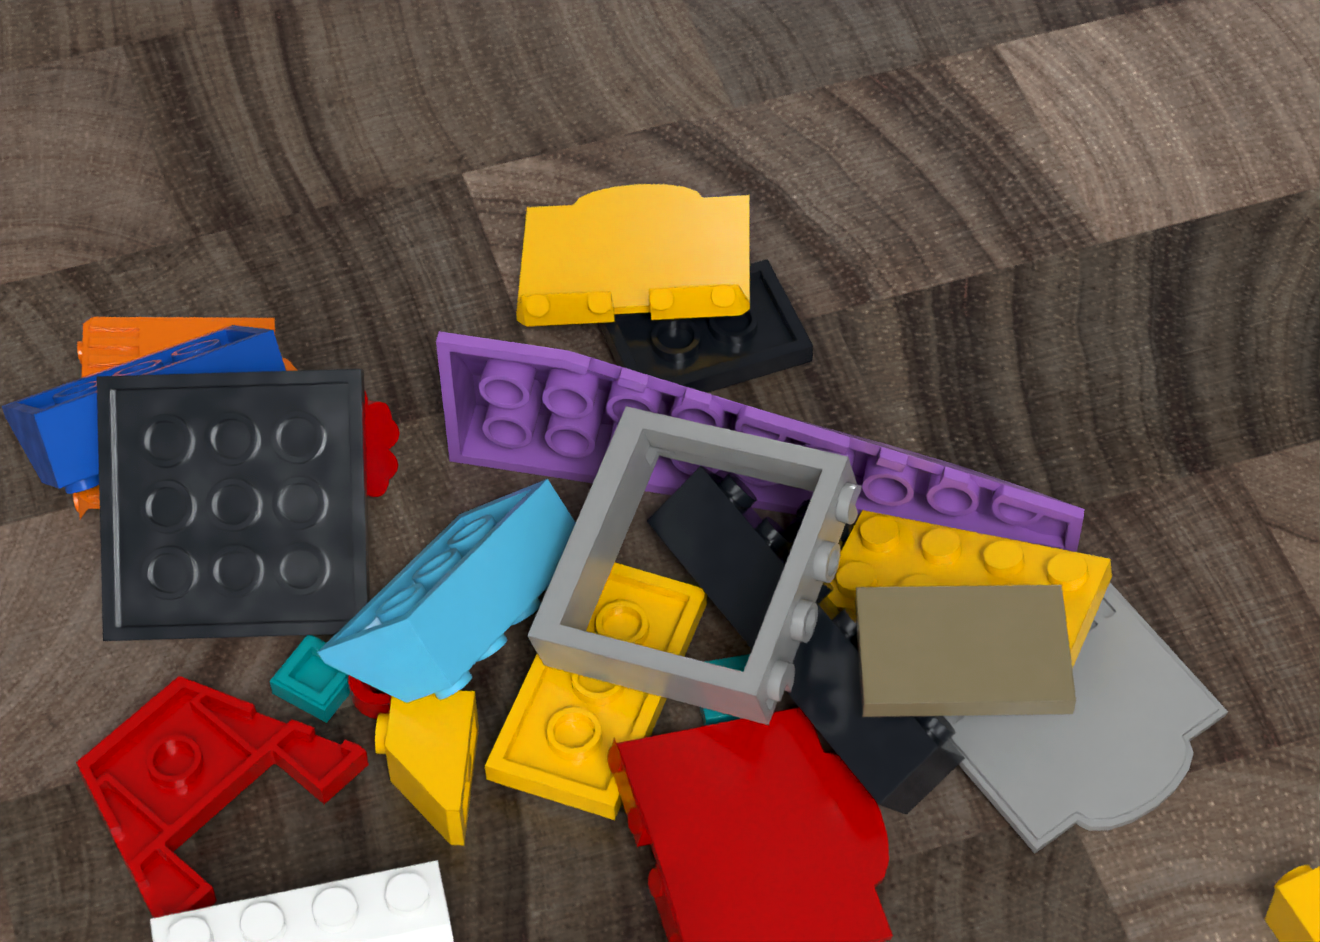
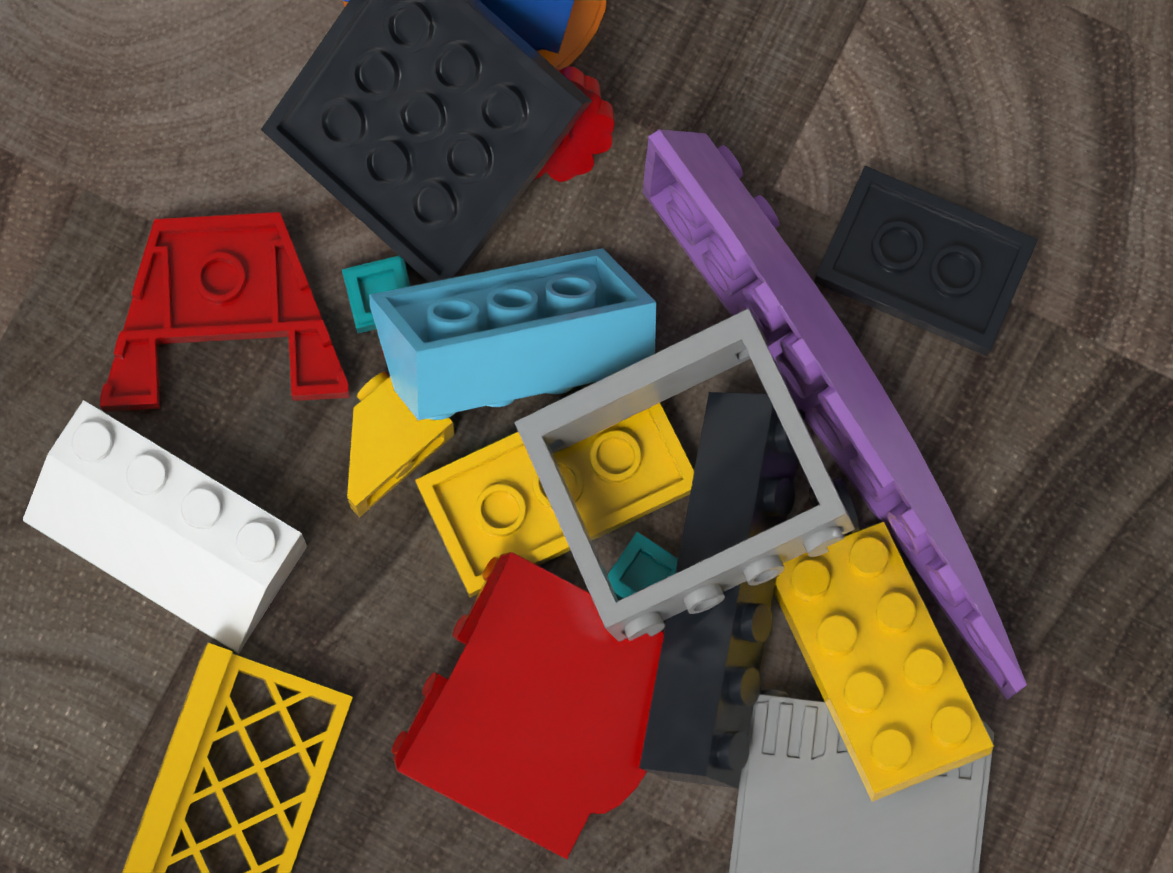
camera: 40 degrees right, 25 degrees up
(635, 253) = (945, 140): yellow piece -> none
(964, 651) = (795, 724): dark tan tile -> none

